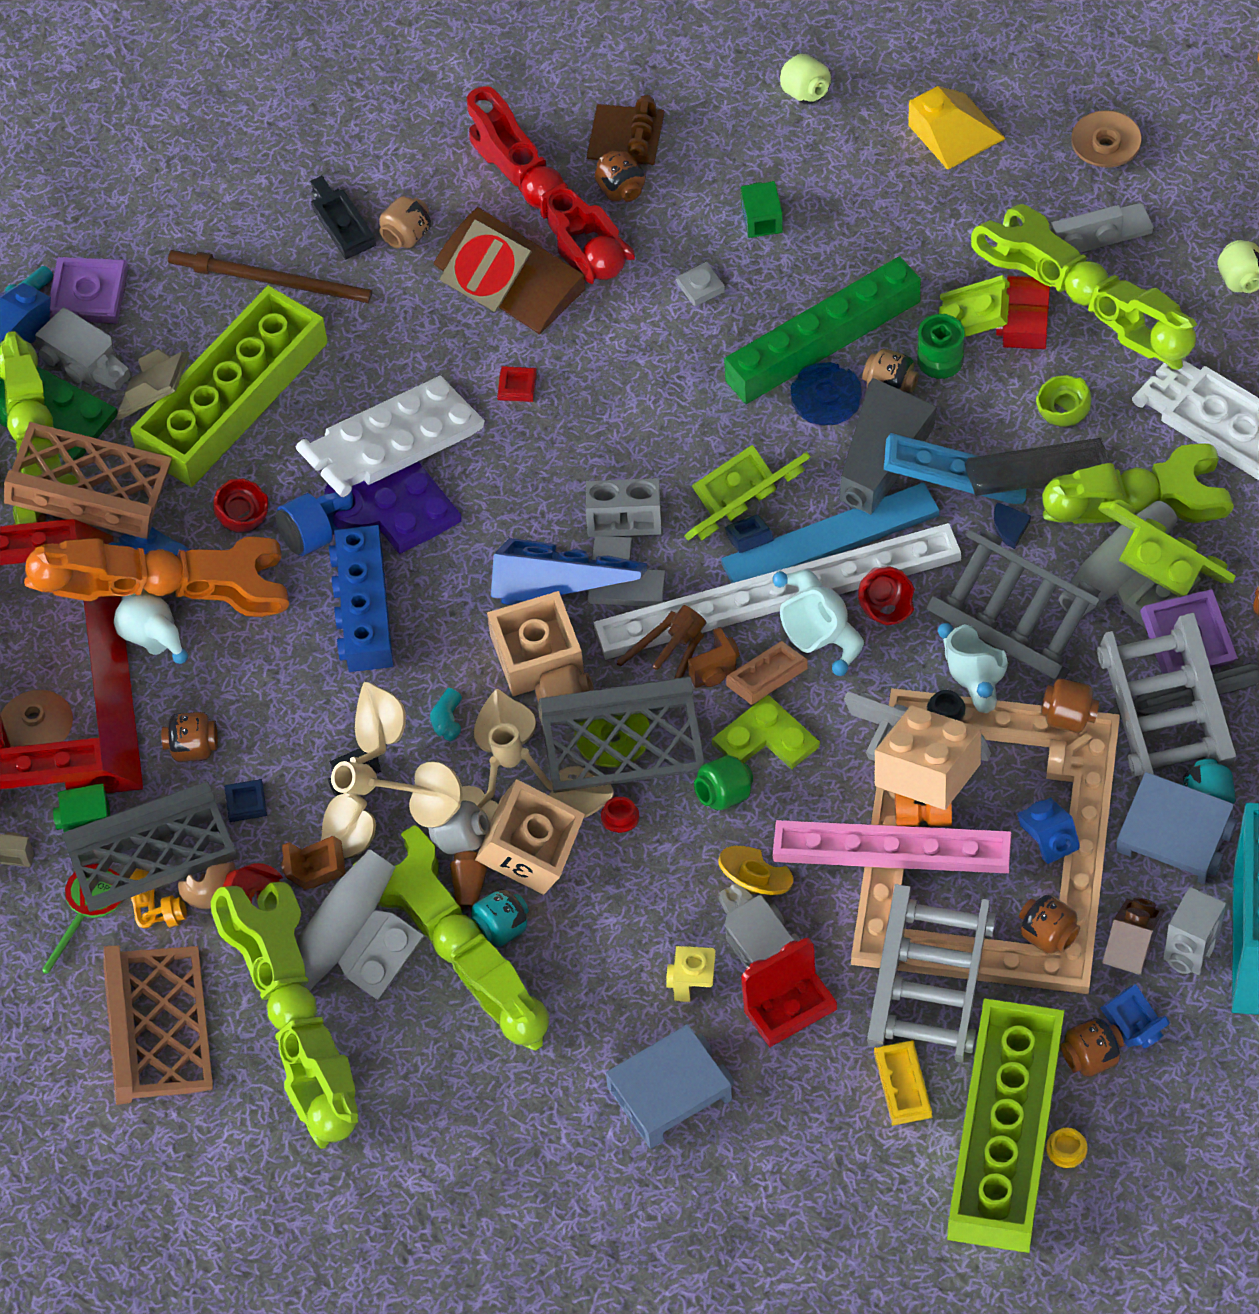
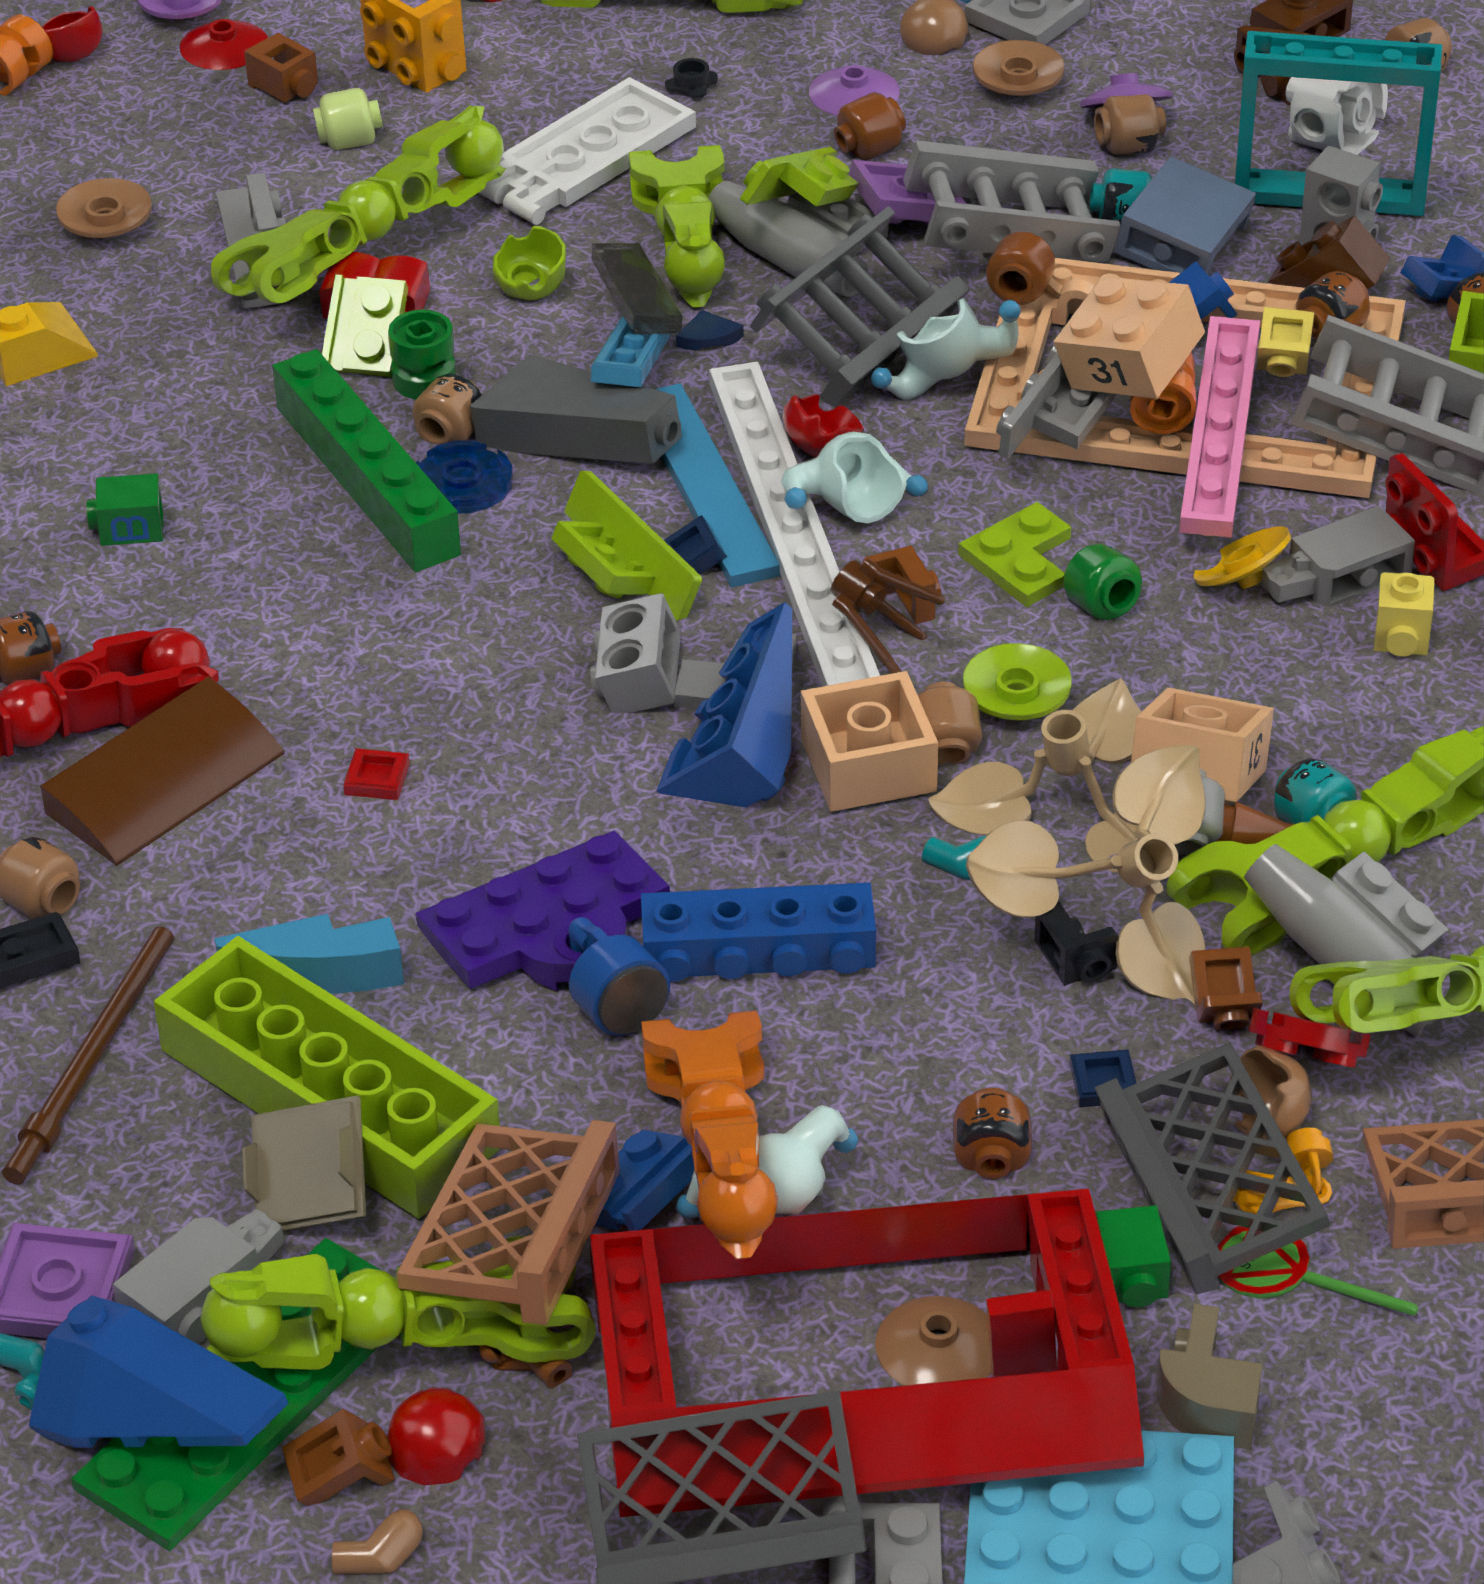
camera: 90 degrees left, 15 degrees down
(235, 499) = (578, 1065): red hair -> none
(338, 371) = (335, 959): none -> dark azure slope
(391, 435) = (468, 883): white hinge -> none
(485, 265) = (164, 775): piece -> none
(620, 702) = (993, 655): dark grey fence -> none
(620, 815) = (1147, 680): red plate -> none
(700, 284) = (239, 584): light grey plate -> none
(766, 672) = (934, 540): nougat plate -> none
(947, 704) = (1008, 373): black plate -> none
(1002, 887) = (1285, 341): none -> light yellow bracket

